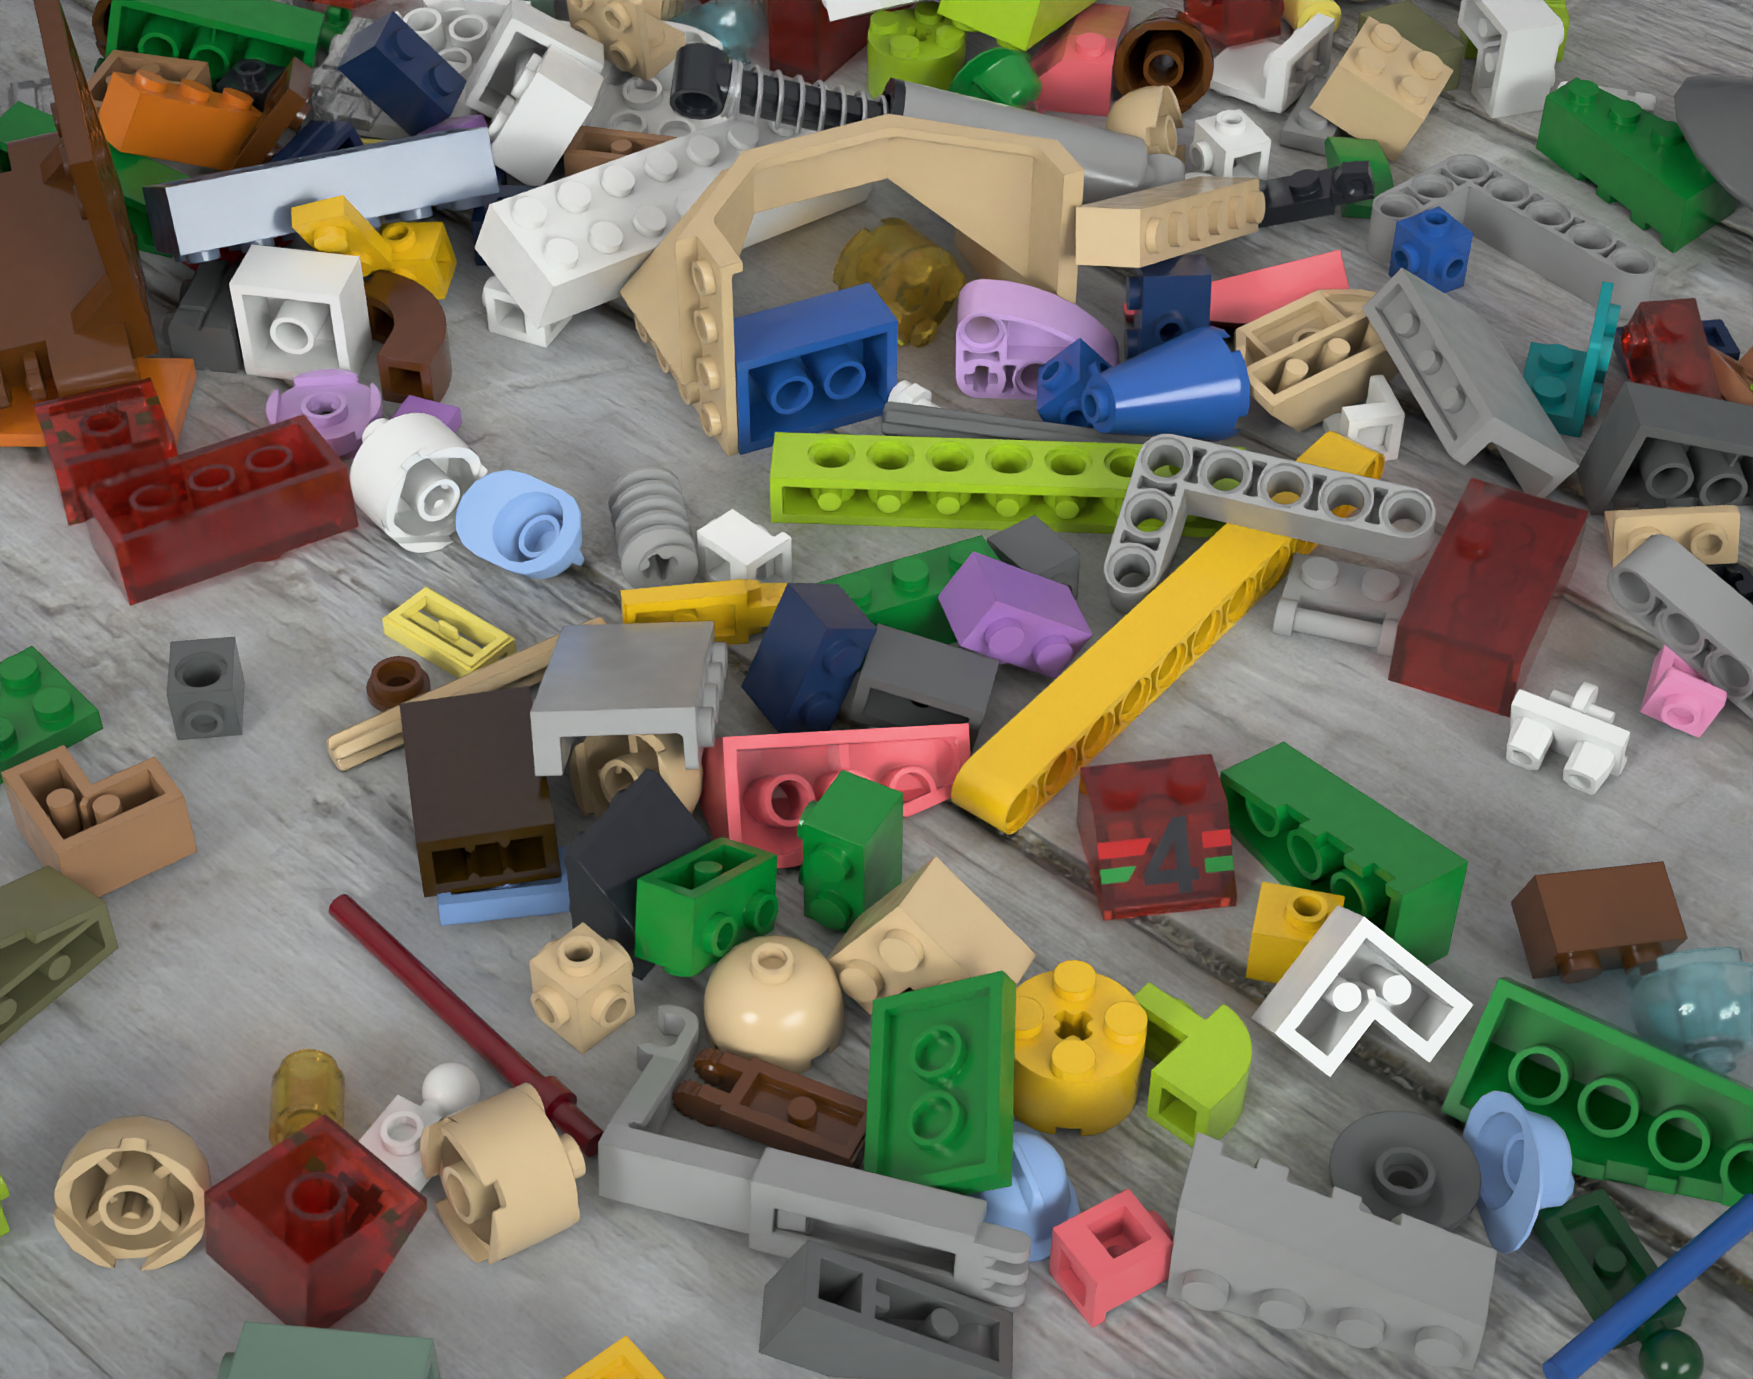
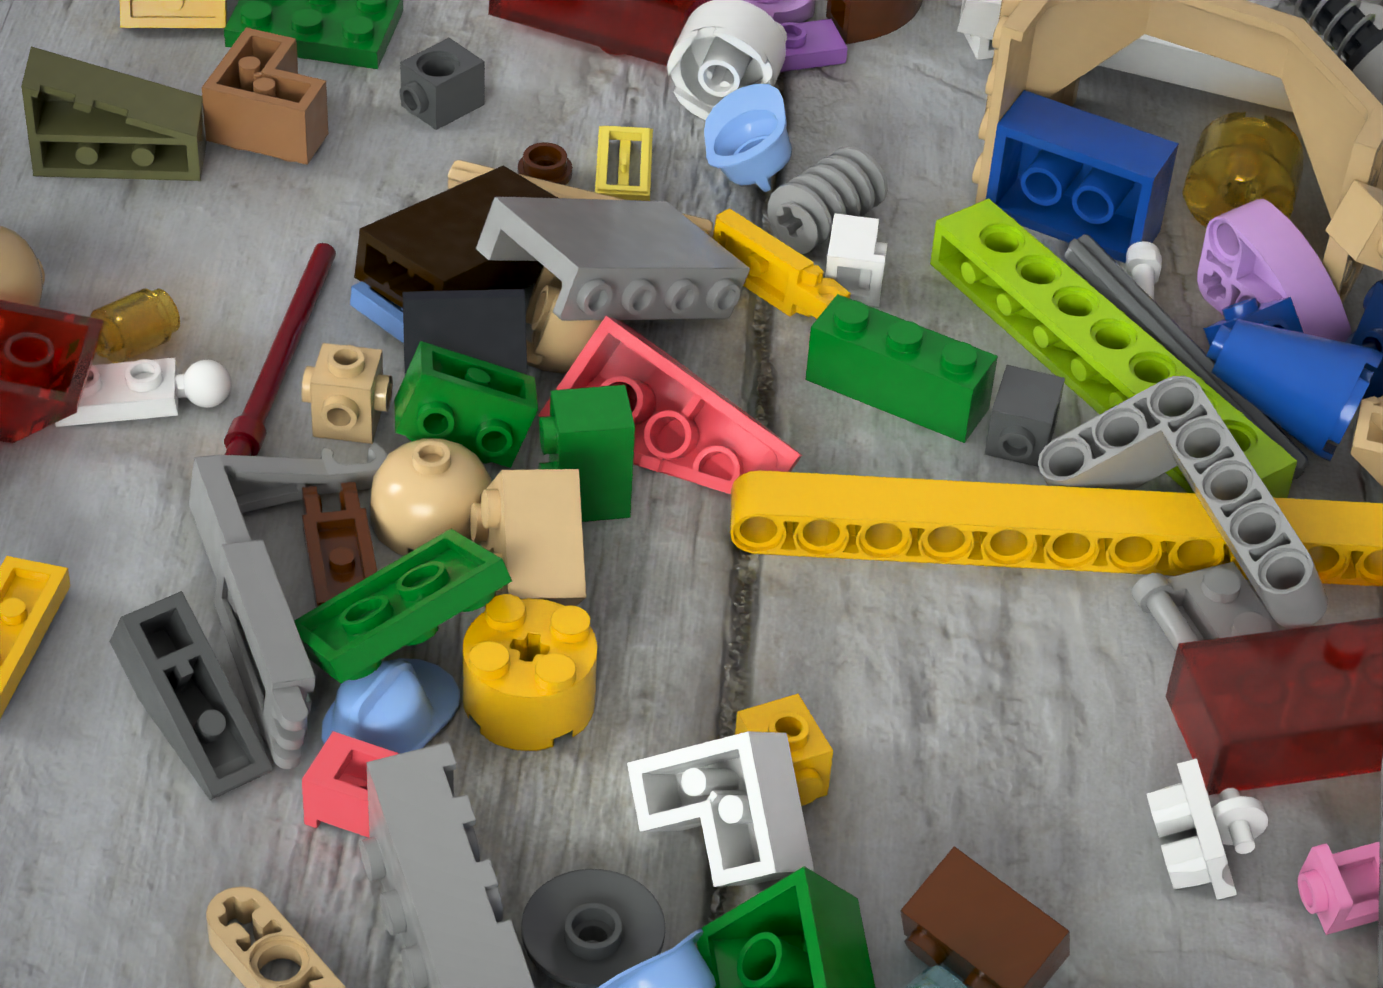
camera: 50 degrees right, 0 degrees up
(503, 1174) = (137, 433): tan brick -> none
(808, 657) = (762, 332): dark blue brick -> none
(922, 683) = (816, 412): dark grey brick -> none
(1014, 615) = (938, 419): medium lavender brick -> none
(1156, 836) = (806, 621): clear red slope -> none
(1199, 1066) = (581, 765): lime brick -> none
(1338, 841) = (887, 744): green wedge -> none

